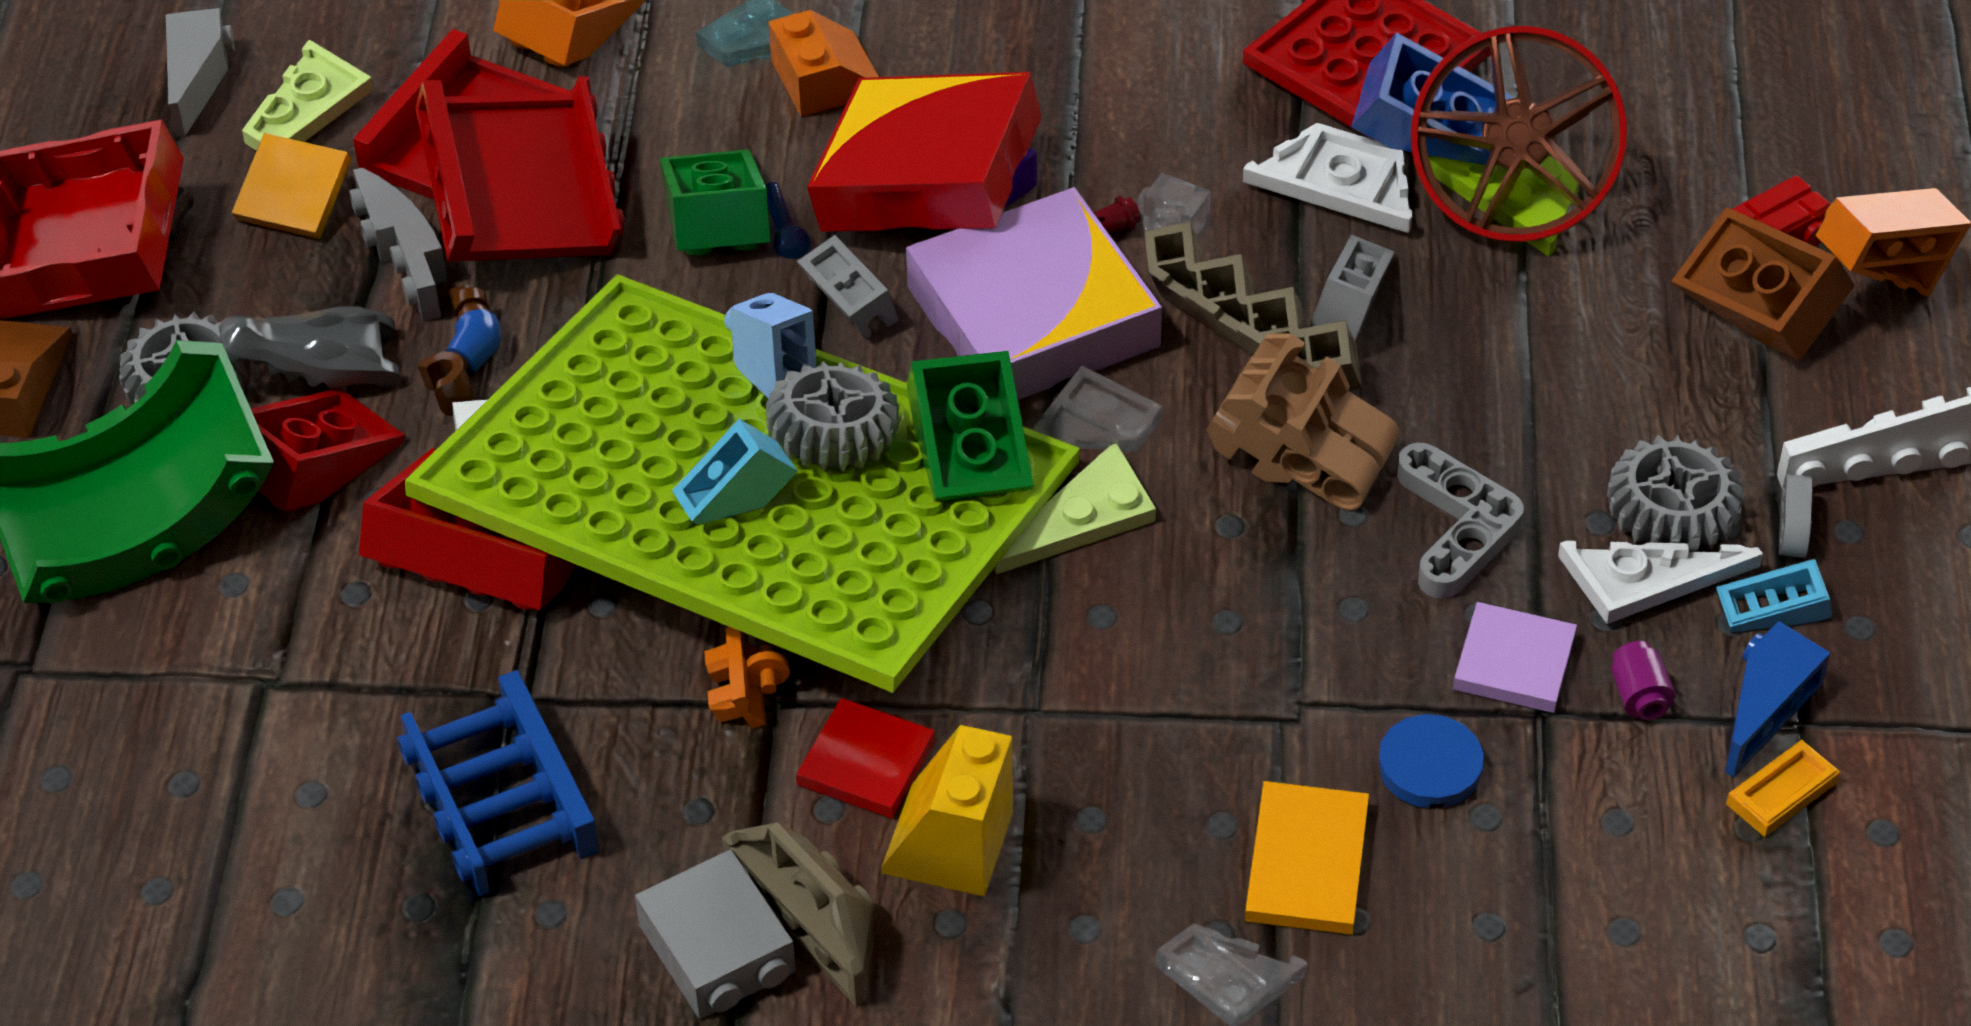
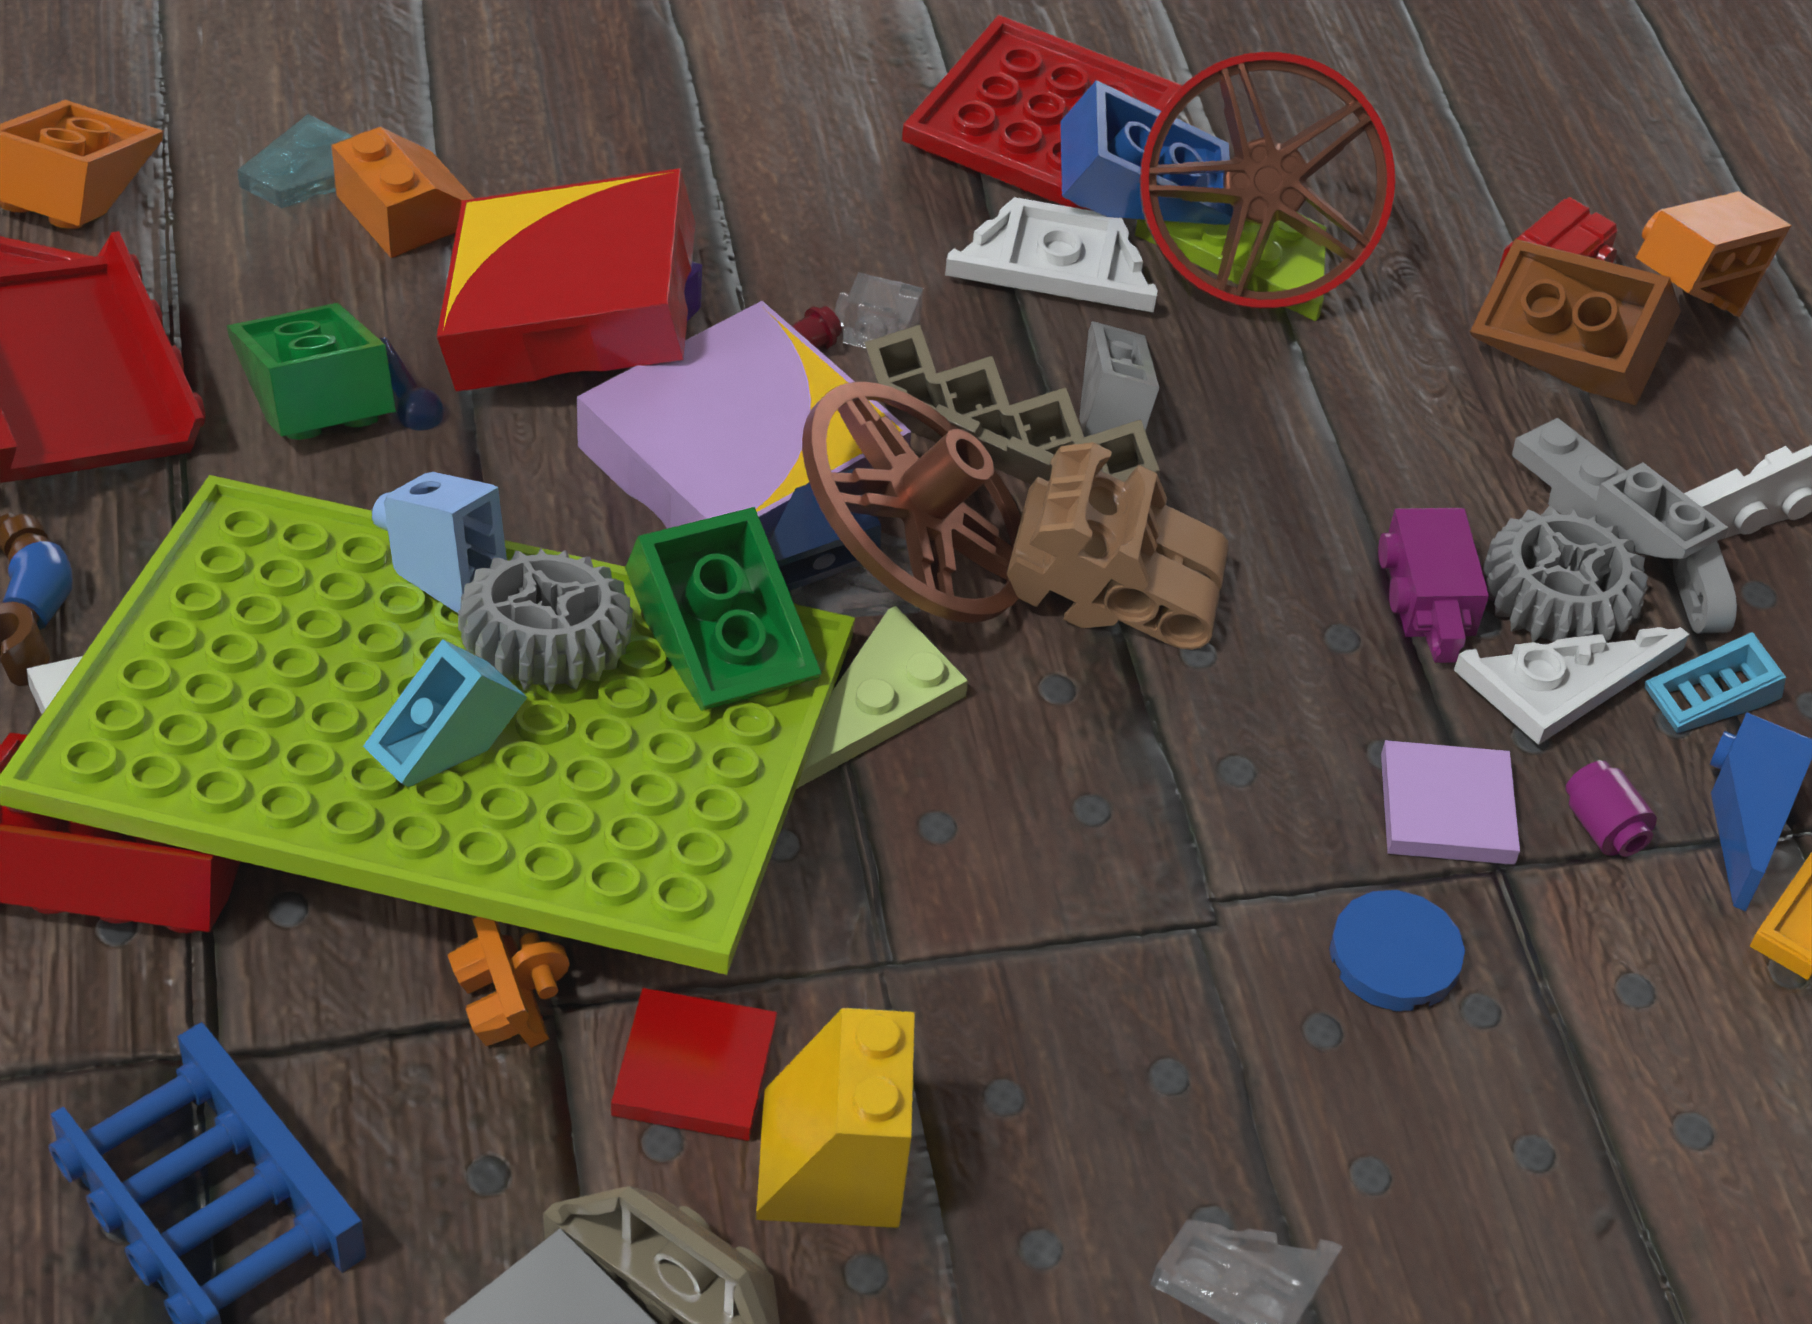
camera: 20 degrees left, 0 degrees up
(849, 284) = (512, 451): light grey hinge -> none
(1065, 379) = (808, 545): none -> dark blue slope
(1146, 353) = (919, 491): none -> copper wheel
(1307, 858) = (1291, 1103): light orange tile -> none
(1473, 516) = (1347, 641): light grey beam -> none
(1564, 479) = (1434, 577): none -> magenta hinge
(1747, 436) = (1636, 500): none -> light grey slope

